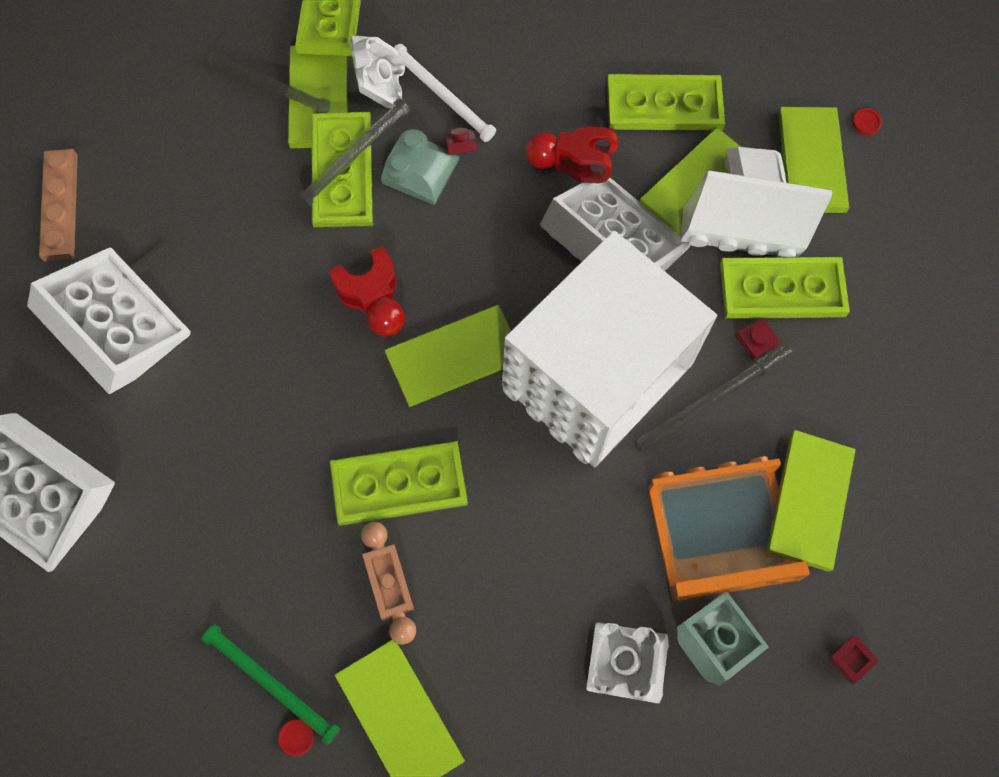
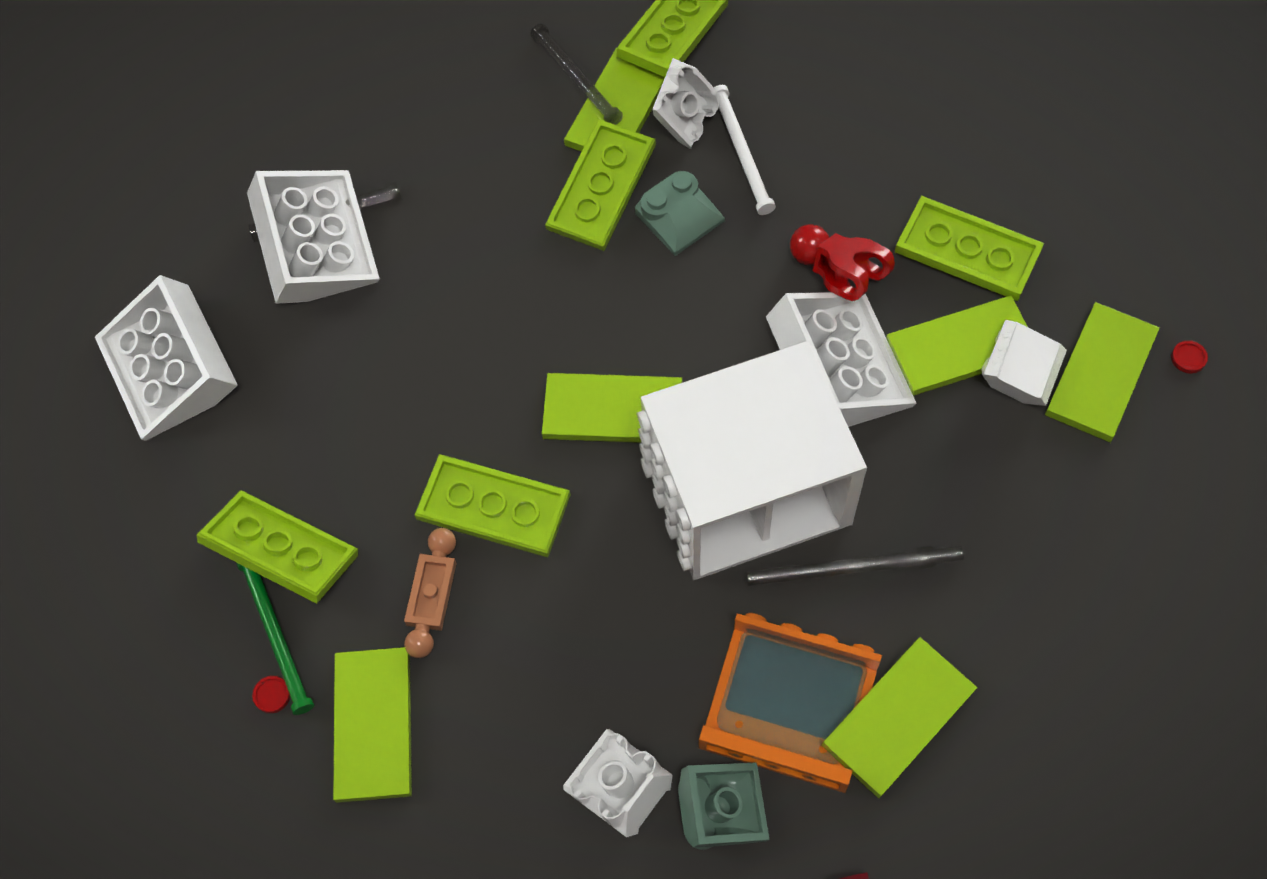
camera: 35 degrees right, 5 degrees down
(58, 205) = (325, 114): nougat plate -> none
(231, 607) = (278, 546): none -> lime tile
(372, 293) = (565, 314): red piece -> none
(399, 108) = (618, 171): clear smoke bar -> none
(460, 141) = (732, 203): dark red plate -> none
(753, 215) = (988, 396): white slope -> none
(757, 339) = (935, 528): dark red plate -> none
(784, 287) = (993, 489): lime plate -> none

